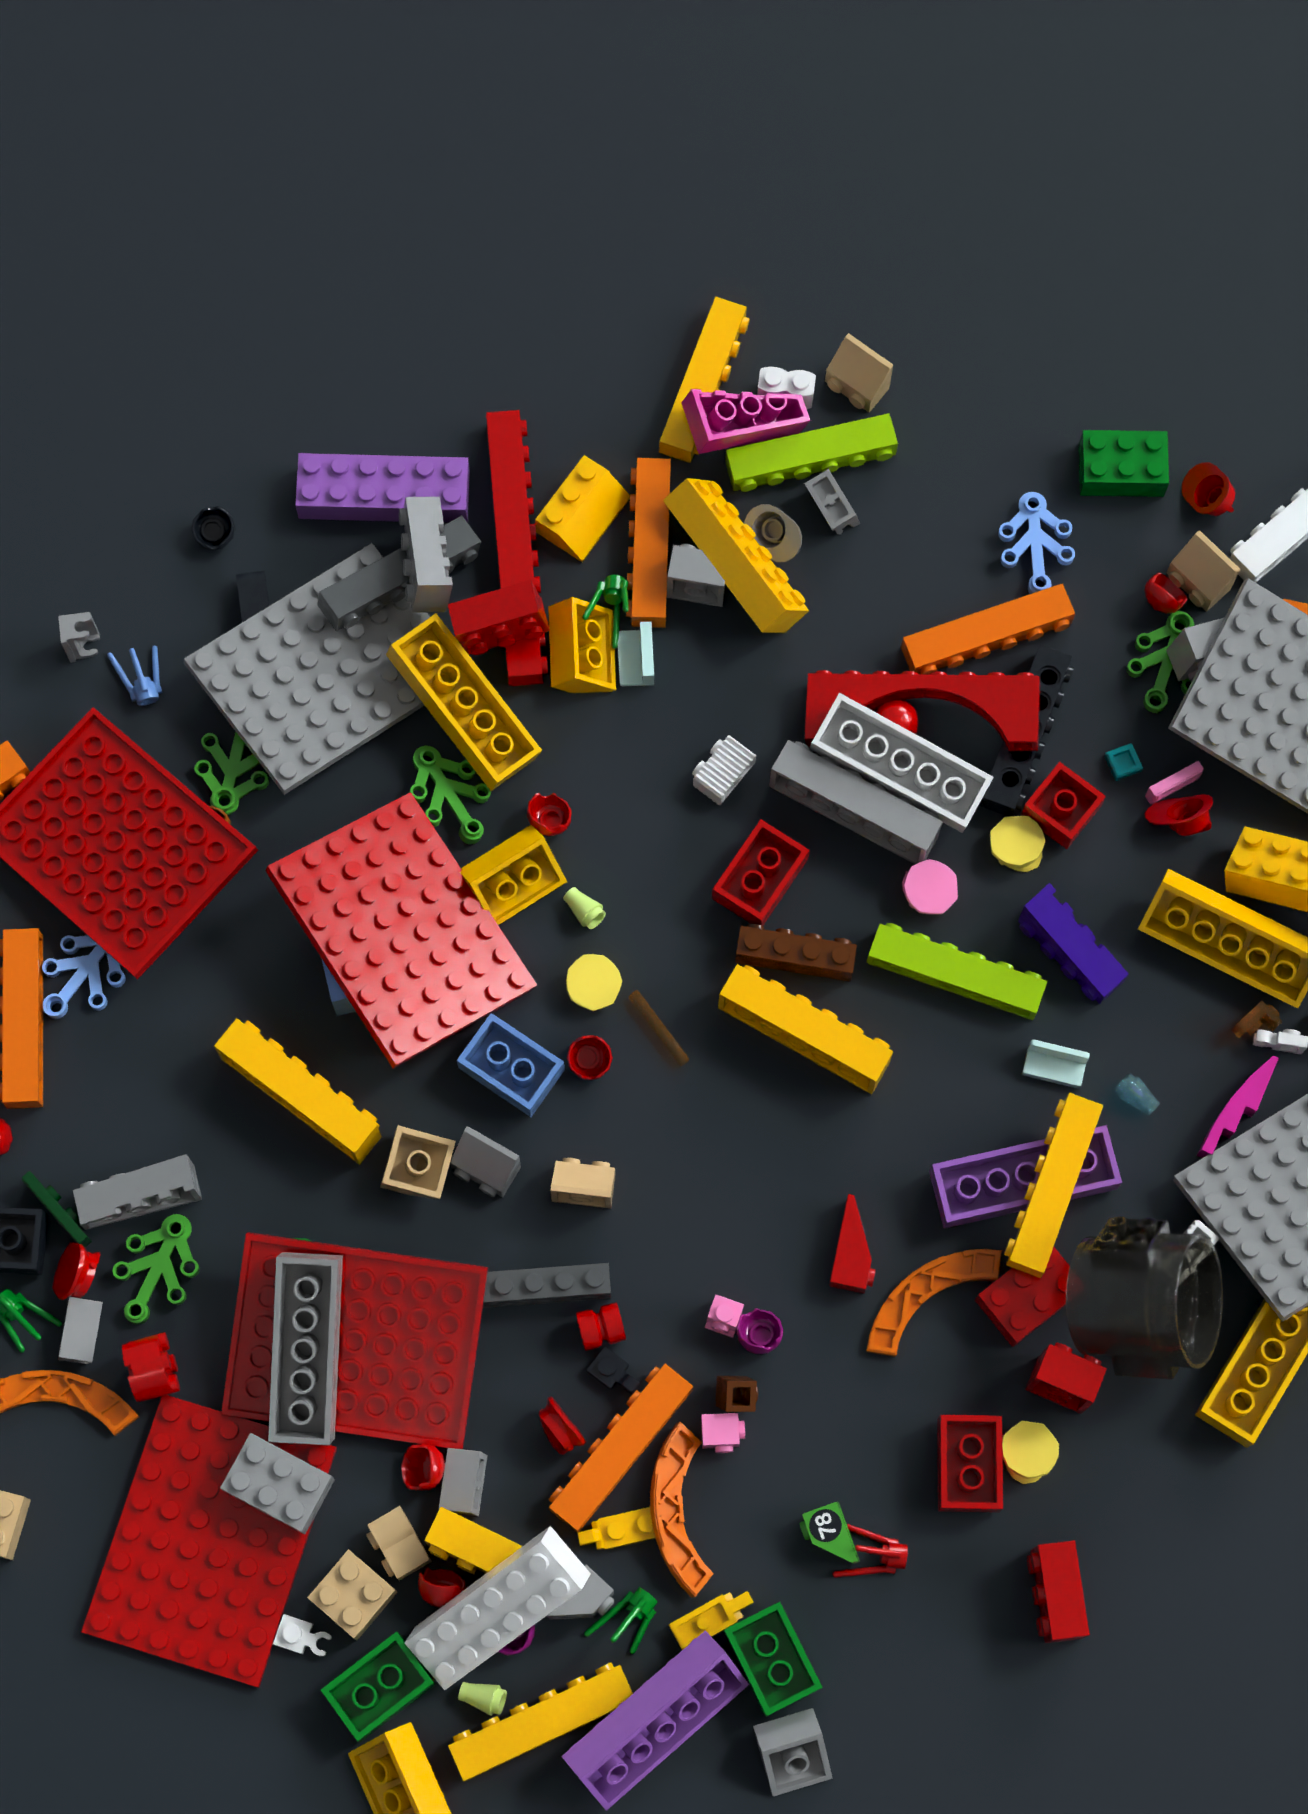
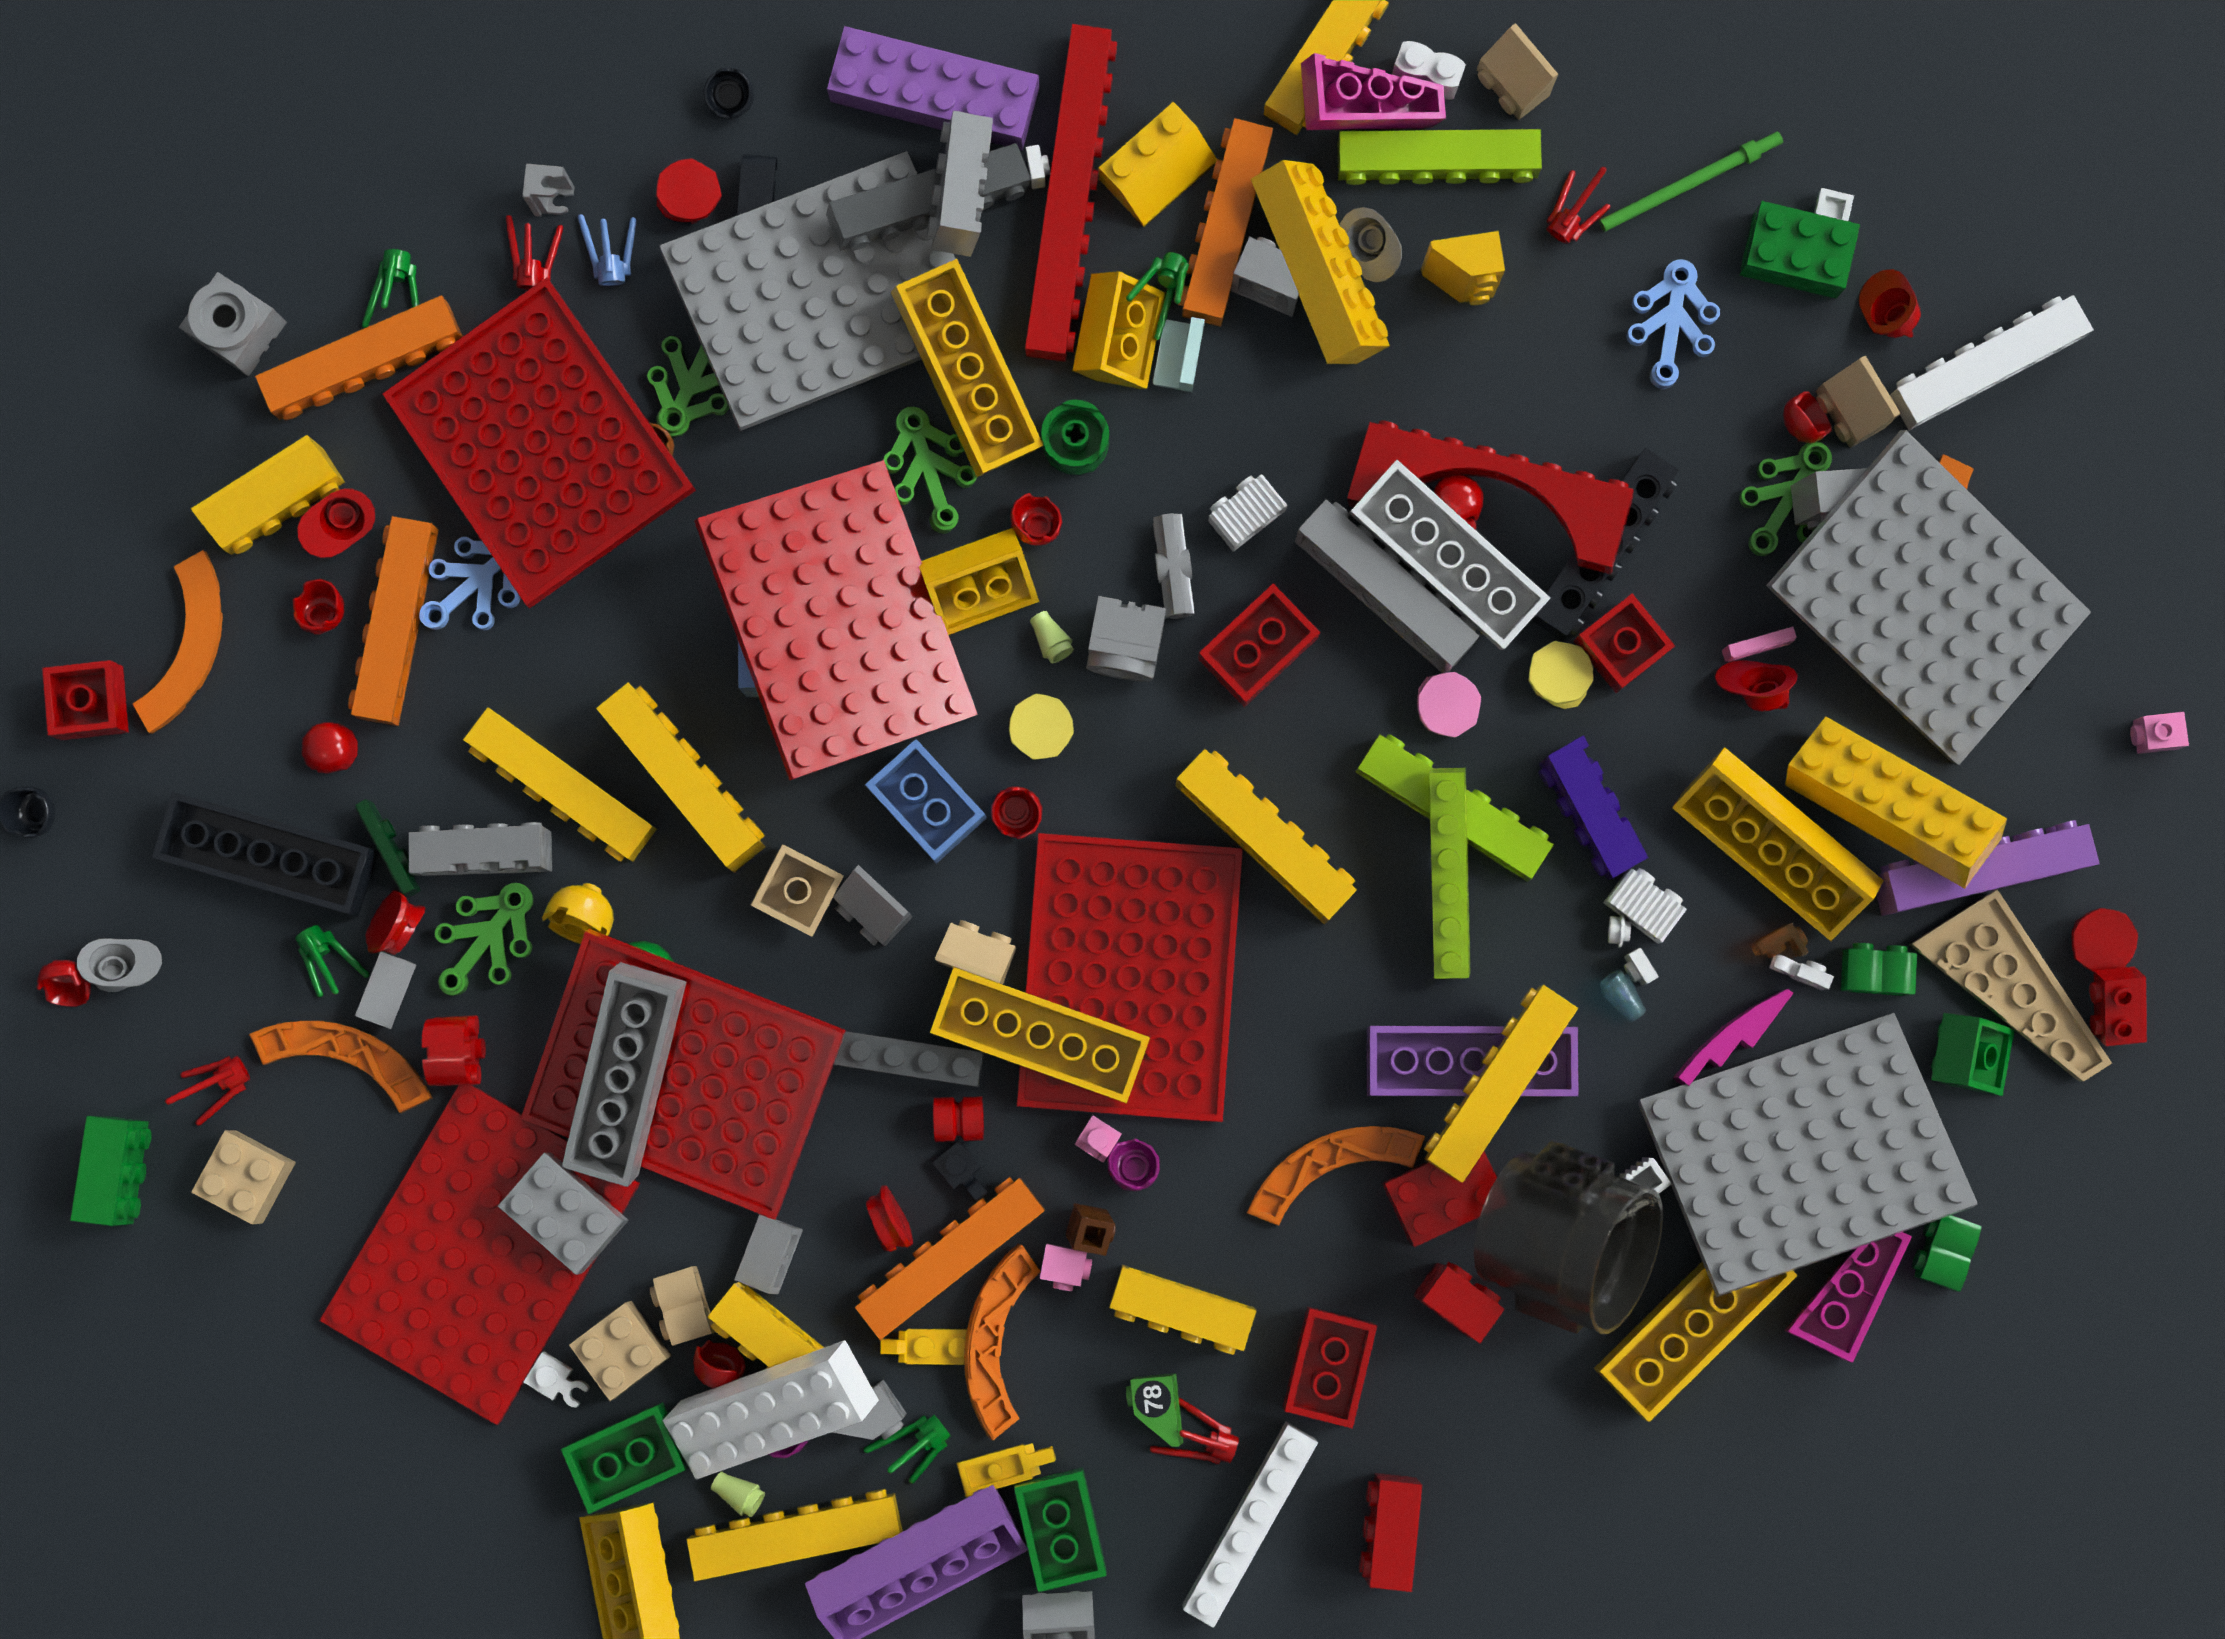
camera: 15 degrees right, 10 degrees up
(77, 705) = (530, 270): none -> red plant
(193, 1122) = (560, 785): none -> yellow brick
(196, 614) = (687, 191): none -> red hat
(229, 1225) = (577, 910): none -> yellow cylinder
(422, 1467) = (727, 1229): red hair -> none
(483, 530) = (1037, 166): none -> white plate
(498, 618) = (1028, 279): red brick -> none
(563, 755) = (1060, 426): none -> green brick
(648, 893) = (1125, 640): none -> light grey piece
(654, 1236) = (1040, 1035): none -> yellow brick
(659, 1028) = (1103, 793): clear orange bar -> none
(673, 827) = (1173, 566): none -> light grey piece
(718, 1175) = (1148, 946): none -> red plate
(796, 953) = (1276, 745): reddish brown brick -> none
(831, 1441) = (1182, 1308): none -> yellow brick
(832, 502) = (1445, 212): light grey hinge -> none
(852, 1257) = (1256, 1106): red slope -> none
(856, 532) = (1466, 266): none -> yellow slope
(928, 485) = (1565, 224): none -> red plant
(934, 1616) = (1249, 1524): none -> white brick
(967, 1023) = (1449, 872): none -> lime brick
(988, 630) = (1590, 416): orange brick -> none
(1029, 1451) = (1399, 1367): light yellow hat -> none
(1055, 1063) = (1538, 939): light aqua panel -> none
(1061, 398) = (1748, 153): none -> bright green bar
(1119, 1041) = (1618, 930): none -> white plate
(1123, 761) = (1707, 605): teal tile -> none
(1136, 1015) = (1645, 904): none -> white brick
(1141, 421) = (1833, 204): none -> white plate
(1145, 1067) = (1639, 967): none -> white plate

